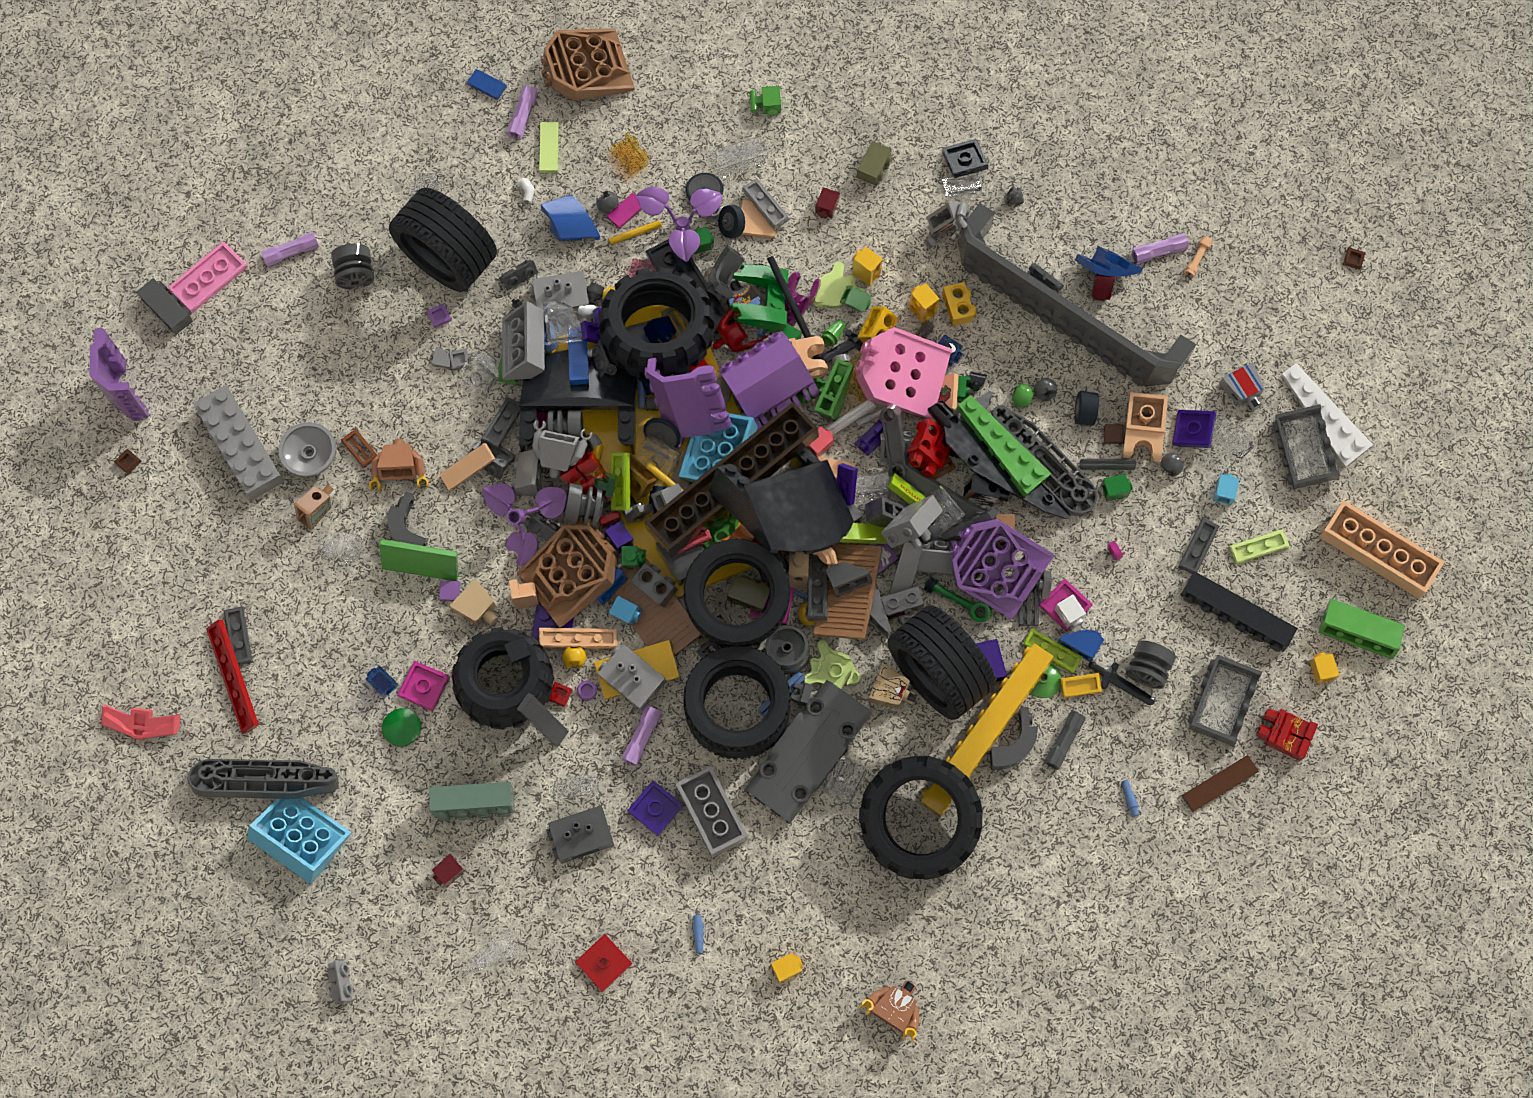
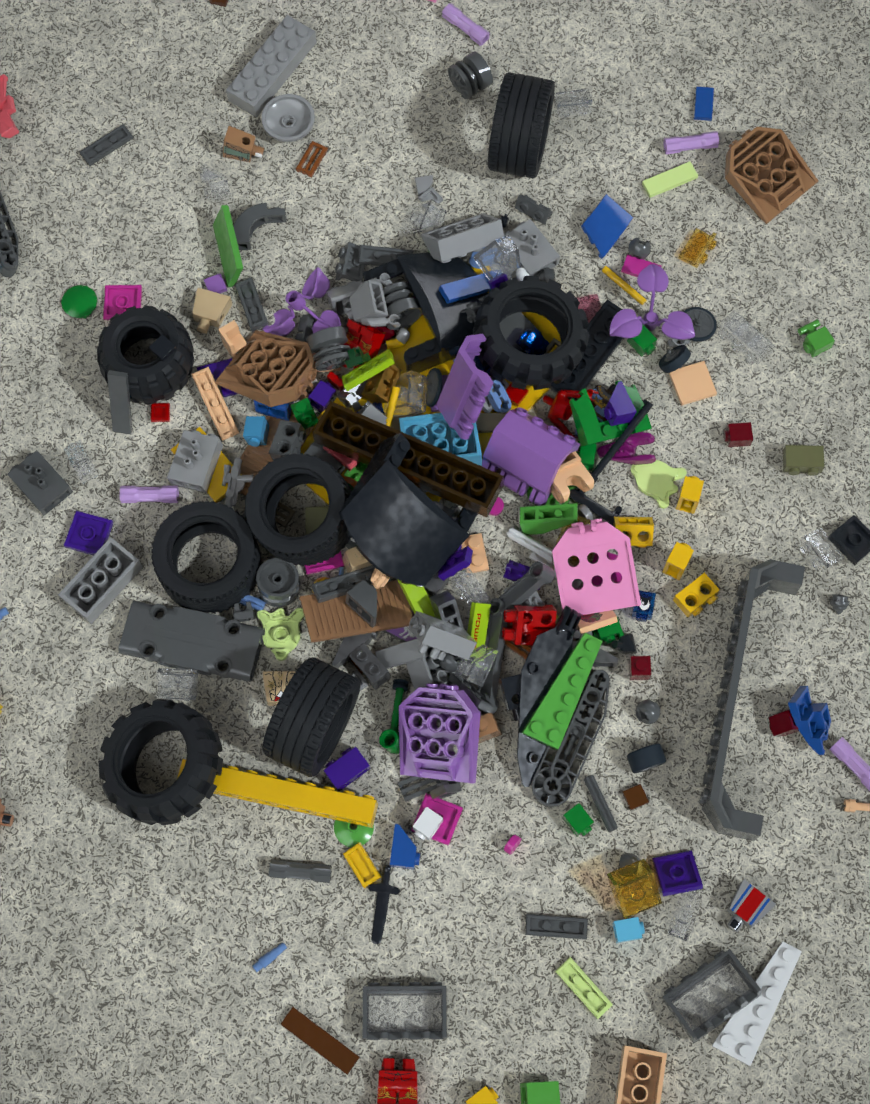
camera: 70 degrees right, 0 degrees up
(232, 676) = (68, 155): red tile -> none
(381, 681) = (110, 267): clear blue brick -> none
(396, 463) = (309, 192): nougat torso -> none
(439, 315) = (463, 164): medium lavender tile -> none
(467, 466) = (330, 246): light nougat tile -> none
(472, 800) = (31, 381): sand green brick -> none
(488, 564) = (251, 304): none -> dark grey tile
(528, 188) = (620, 180): white arm -> none
(574, 657) = (197, 410): yellow piece -> none
(586, 690) = (173, 432): medium lavender tile -> none
(670, 648) = (235, 481): none -> light grey piece
(722, 272) = (610, 373): dark grey arch -> none
(759, 284) = (619, 406): none -> dark purple slope
(765, 204) = (709, 381): light grey tile -> none
(822, 443) = (494, 527): coral brick -> none
(833, 333) = (610, 495): bright green cone -> none
(856, 299) = (652, 500): green brick -> none
(926, 328) = (653, 576): clear smoke pin -> none
(946, 218) = (776, 547): light grey torso -> none
(1004, 378) = (639, 667): none -> dark red brick
(1011, 755) = (273, 832): dark grey arch -> none
(1022, 395) = (631, 692): bright green piece -> none
(1044, 277) = (764, 666): dark grey hinge -> none
(1062, 656) = (385, 825): lime tile -> none
(1145, 430) = (649, 822): light nougat brick -> none
(1151, 664) = (406, 923): dark grey wheel -> none
(1196, 466) = (634, 888): none -> clear yellow brick
(1238, 611) = (503, 992): black brick -> none

